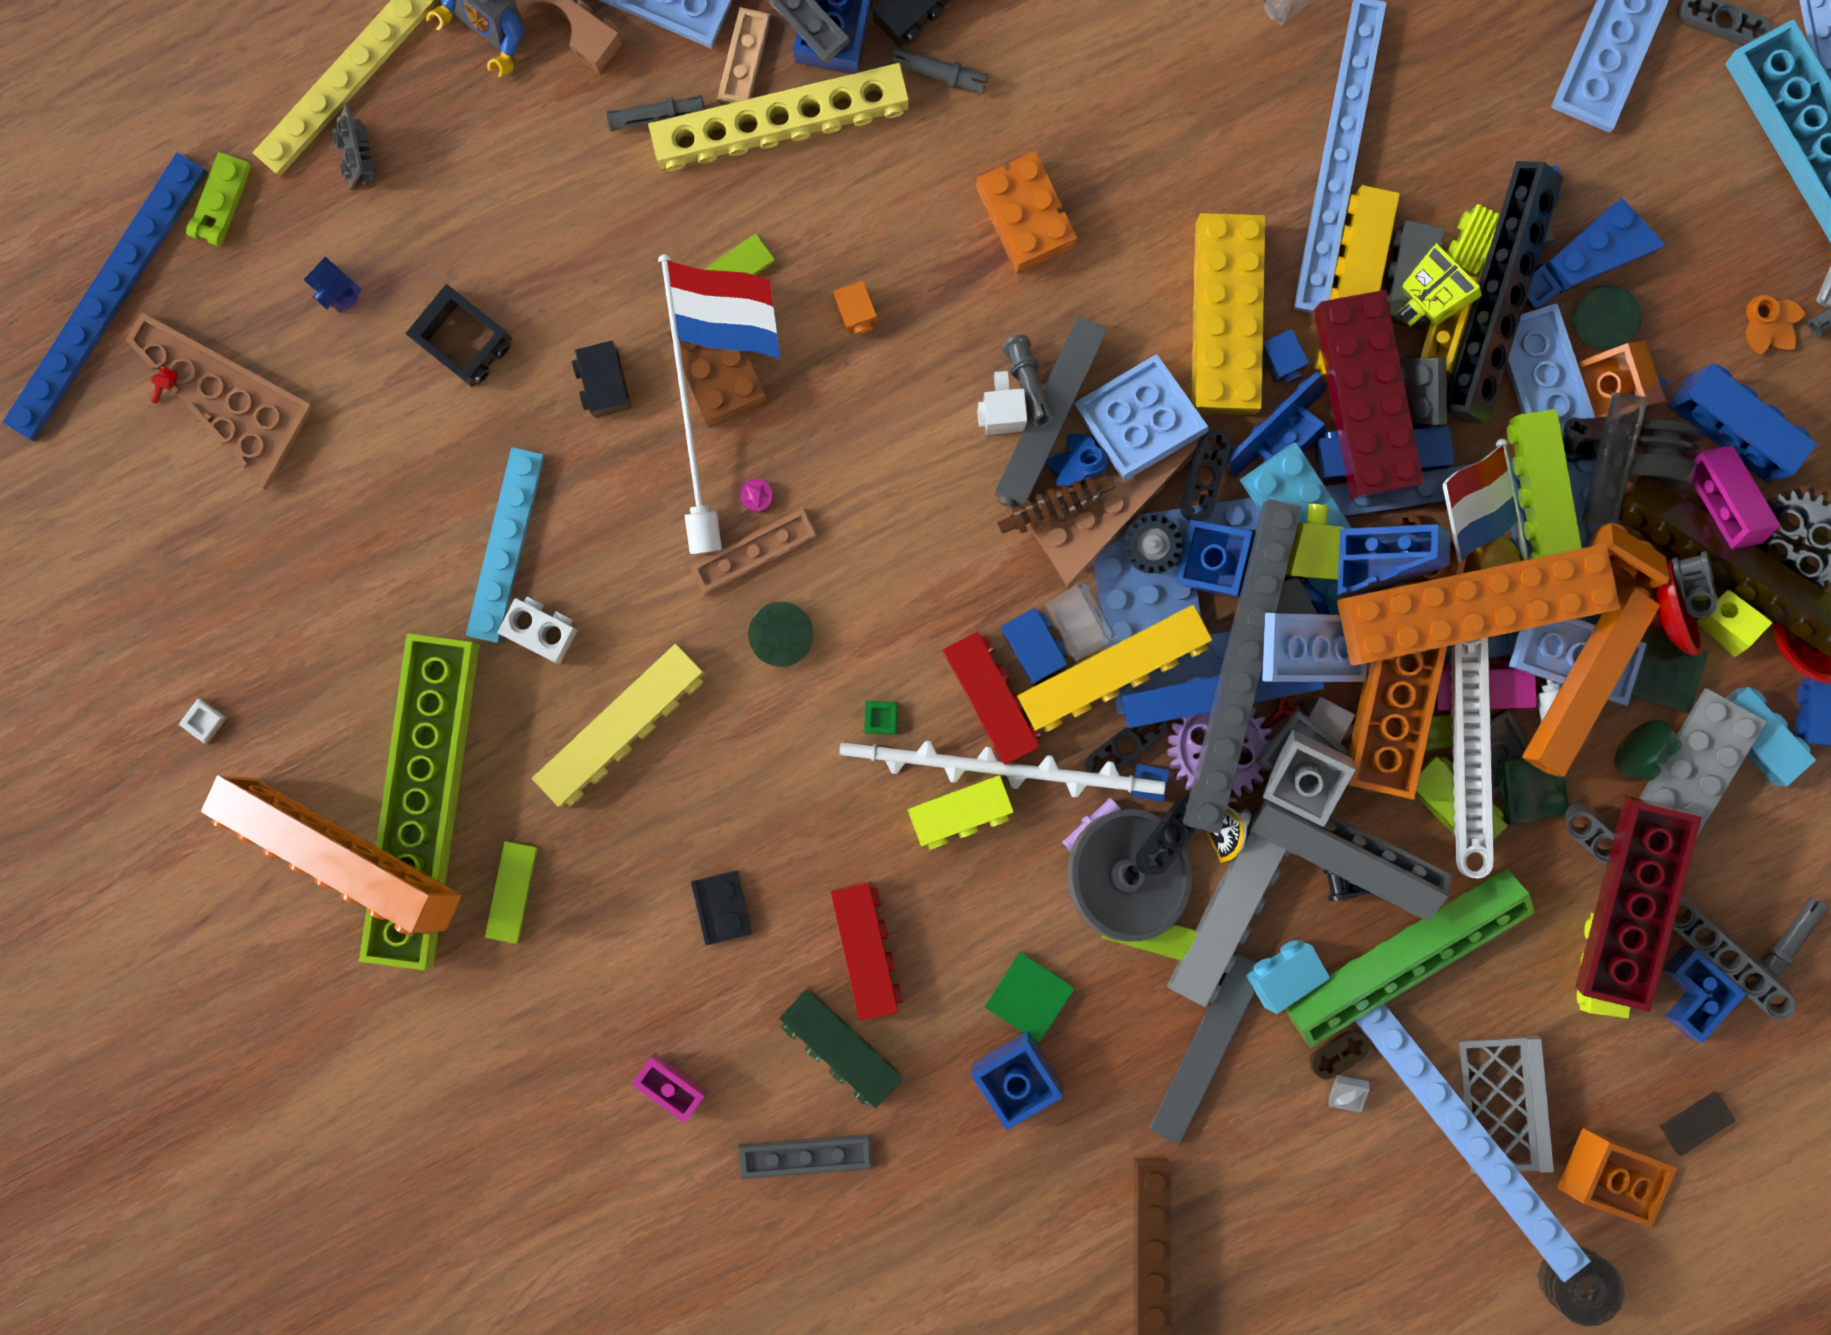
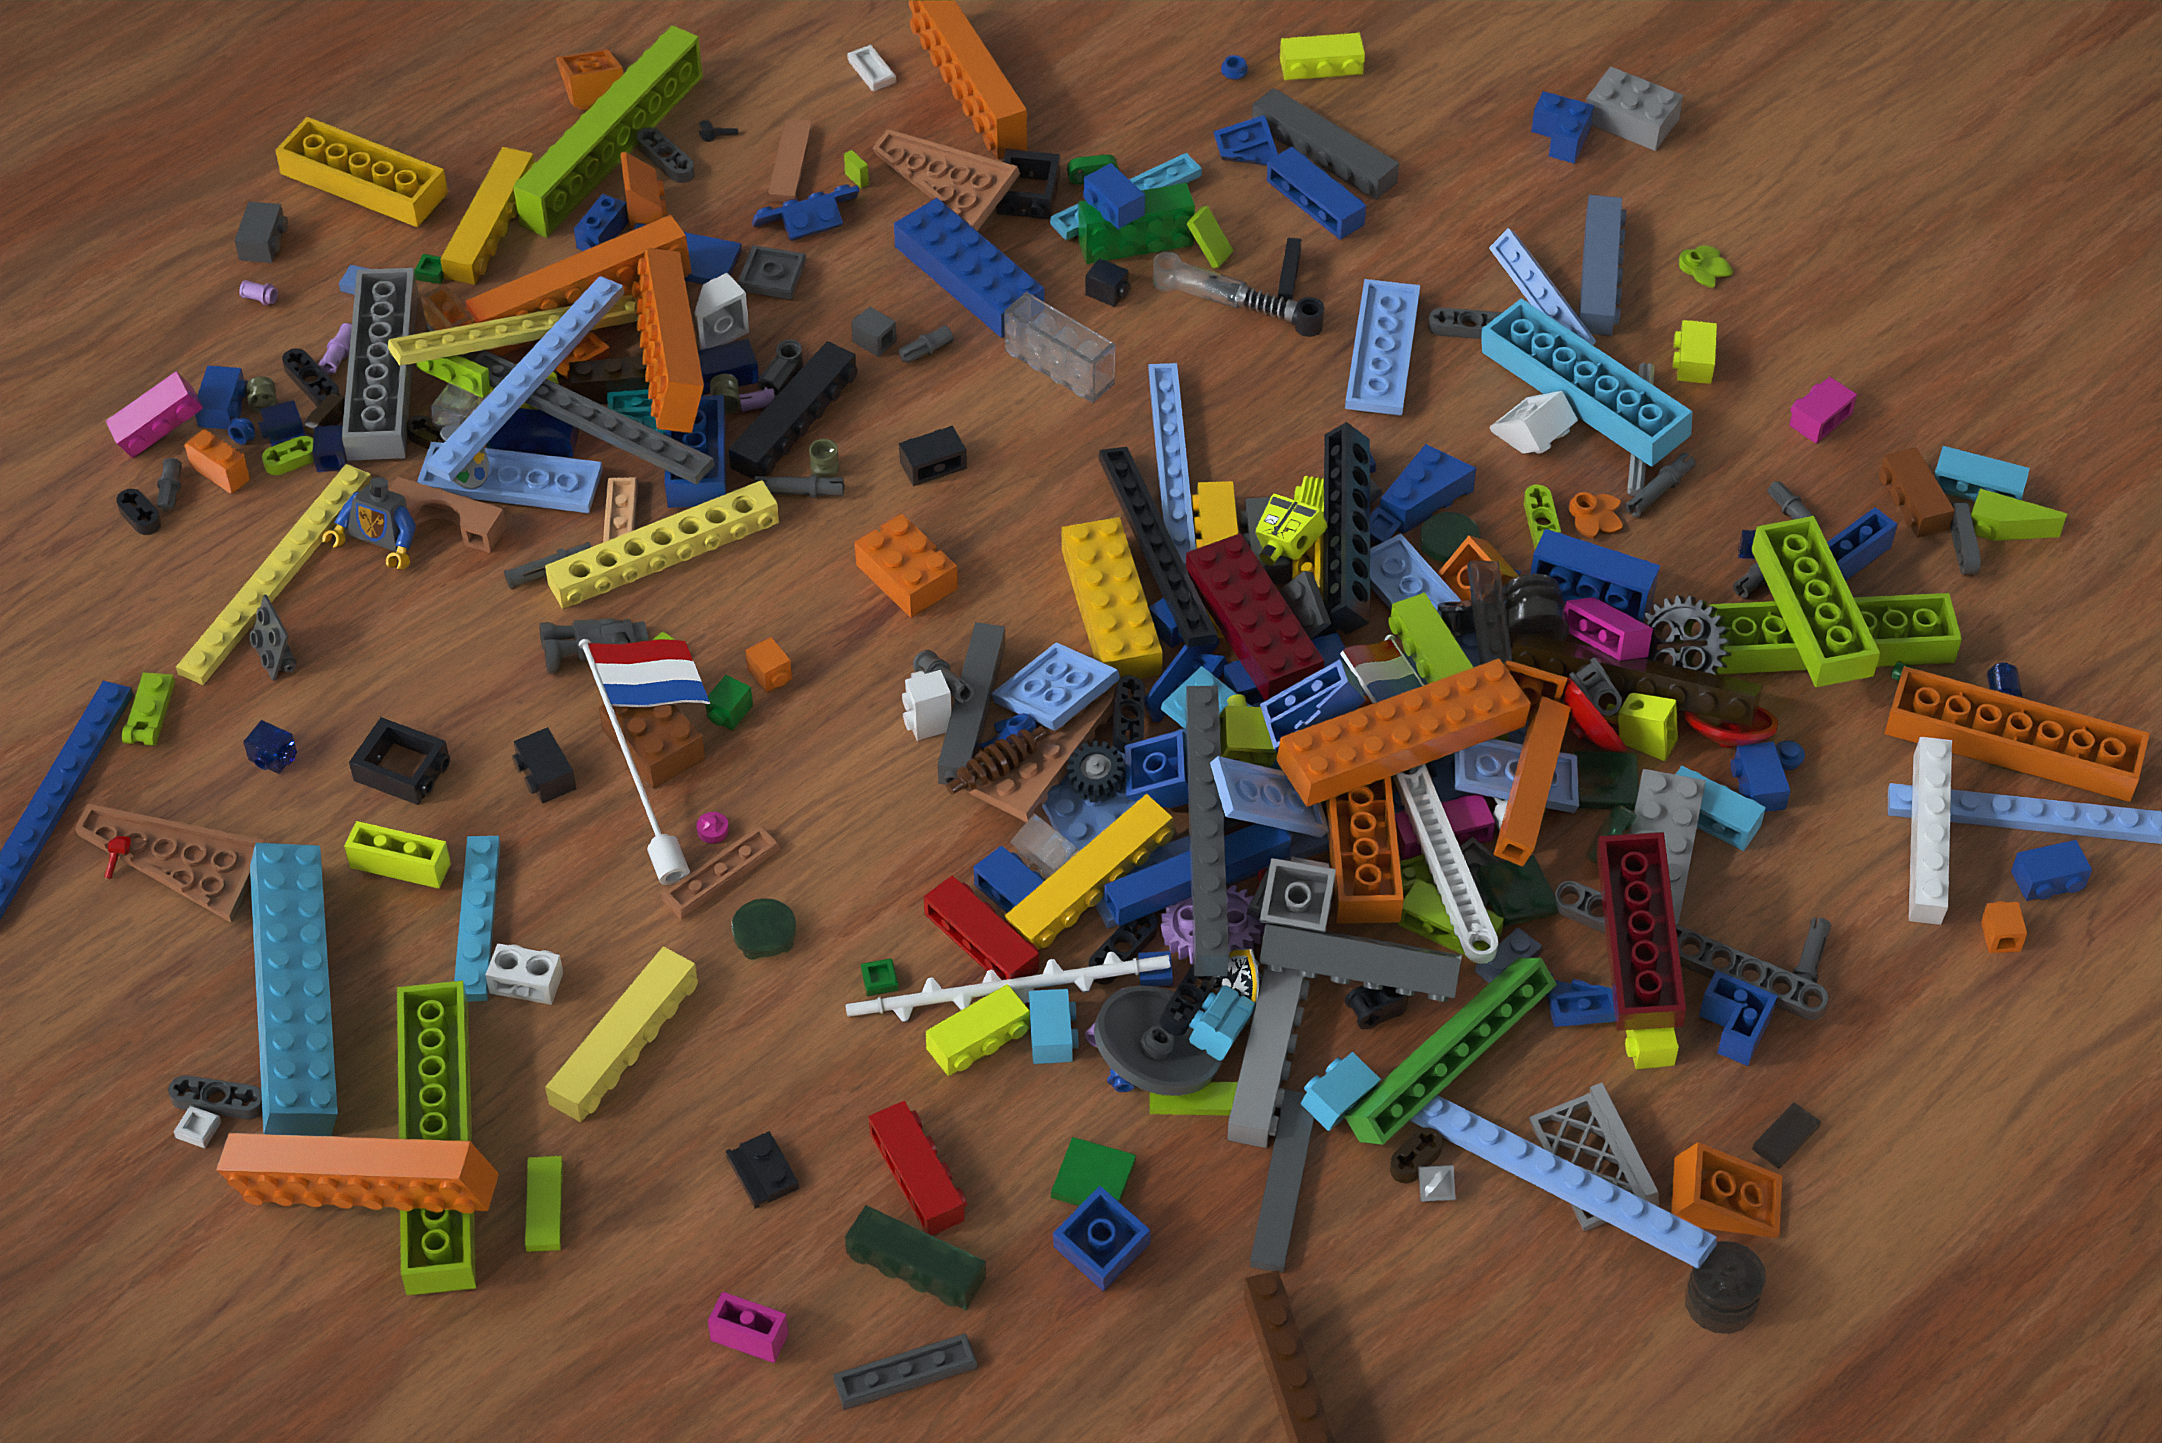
camera: 15 degrees left, 35 degrees down
(207, 675) = (205, 1087): none -> dark grey beam
(310, 595) = (292, 991): none -> medium azure brick
(436, 459) = (397, 854): none -> neon yellow brick
(683, 227) = (600, 631): none -> dark grey piece
(803, 347) = (729, 702): none -> green brick
(973, 33) = (824, 458): none -> olive wheel
(1032, 825) = (1051, 1026): none -> medium azure brick
(1090, 65) = (933, 455): none -> black brick
(1196, 871) = (1221, 1022): none -> medium azure brick
(1294, 262) = (1158, 547): none -> black plate
(1508, 851) = (1514, 946): none -> sand blue plate
(1551, 929) = (1580, 1003): none -> blue wing
(1706, 295) = (1546, 510): none -> lime beam
(1749, 184) = (1536, 422): none -> white slope

